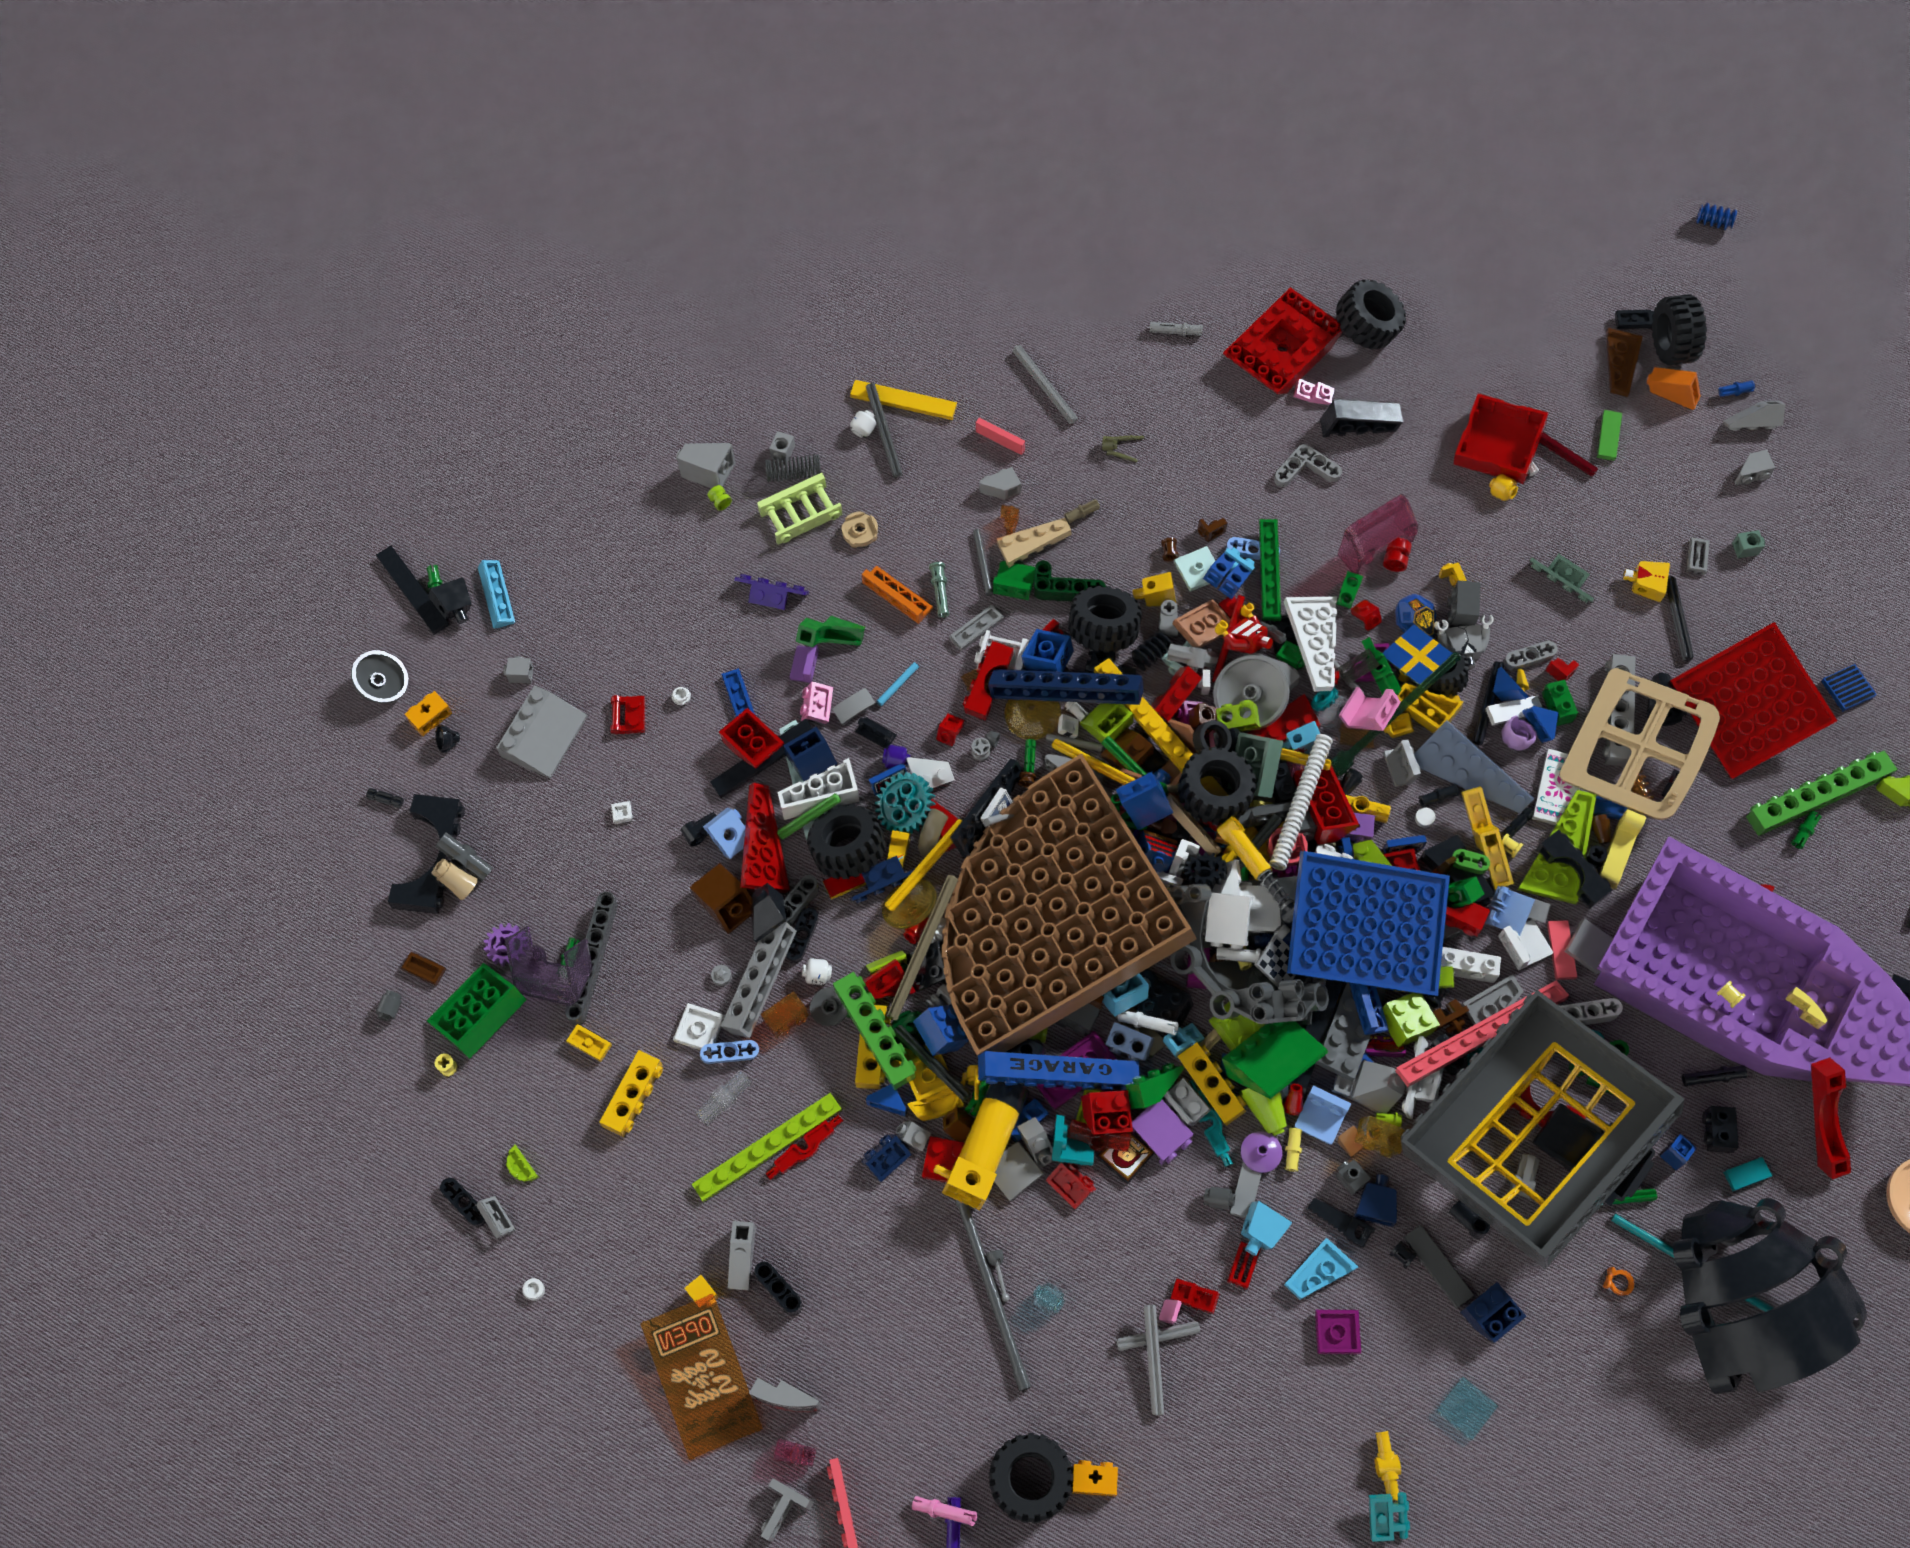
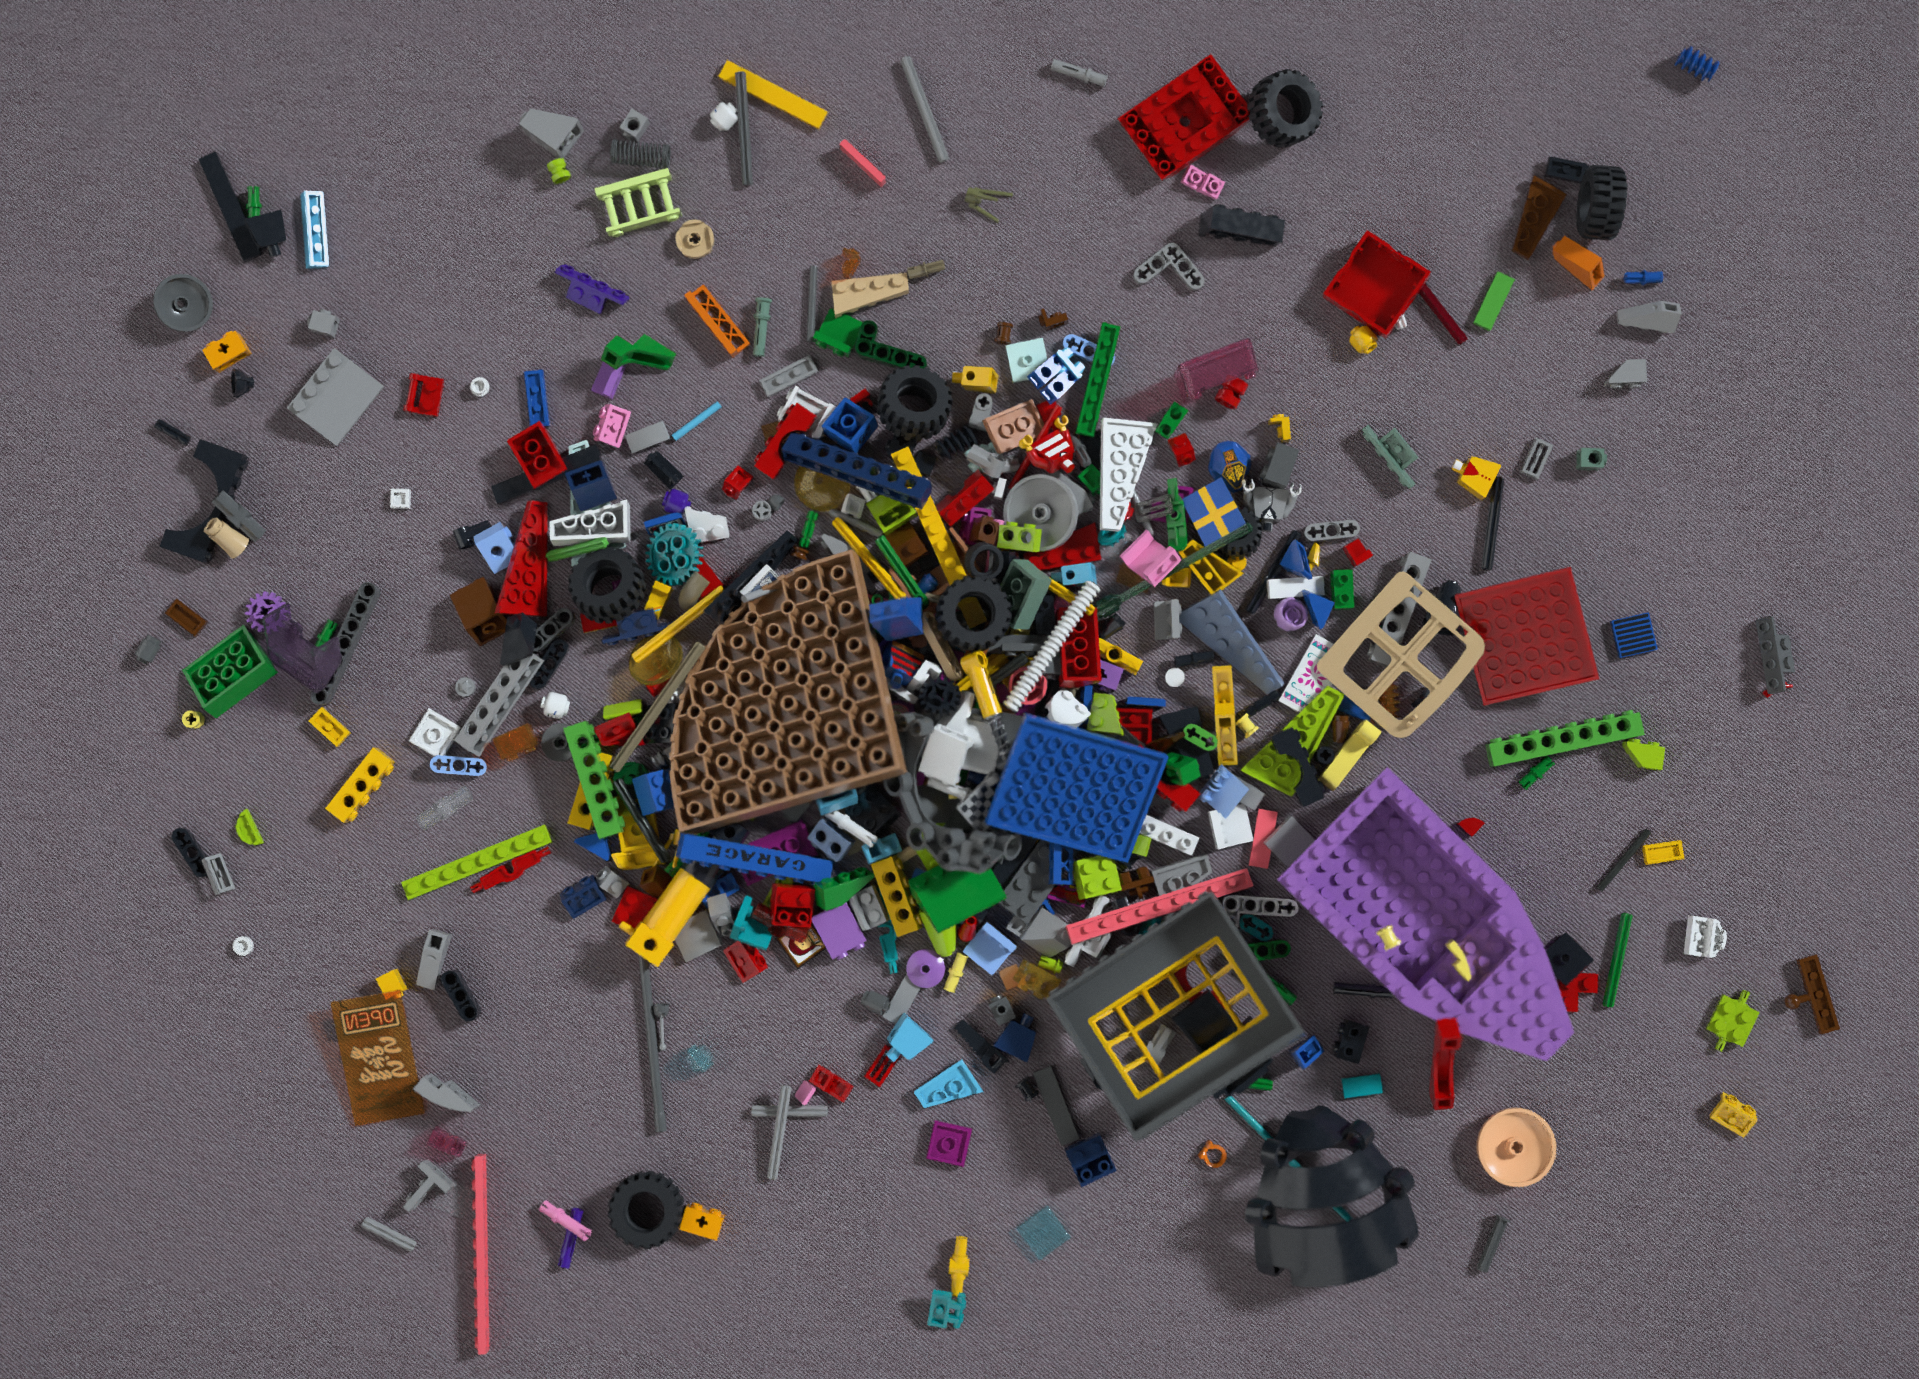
camera: 10 degrees right, 20 degrees up
(1001, 485) = (851, 220): light grey slope -> none

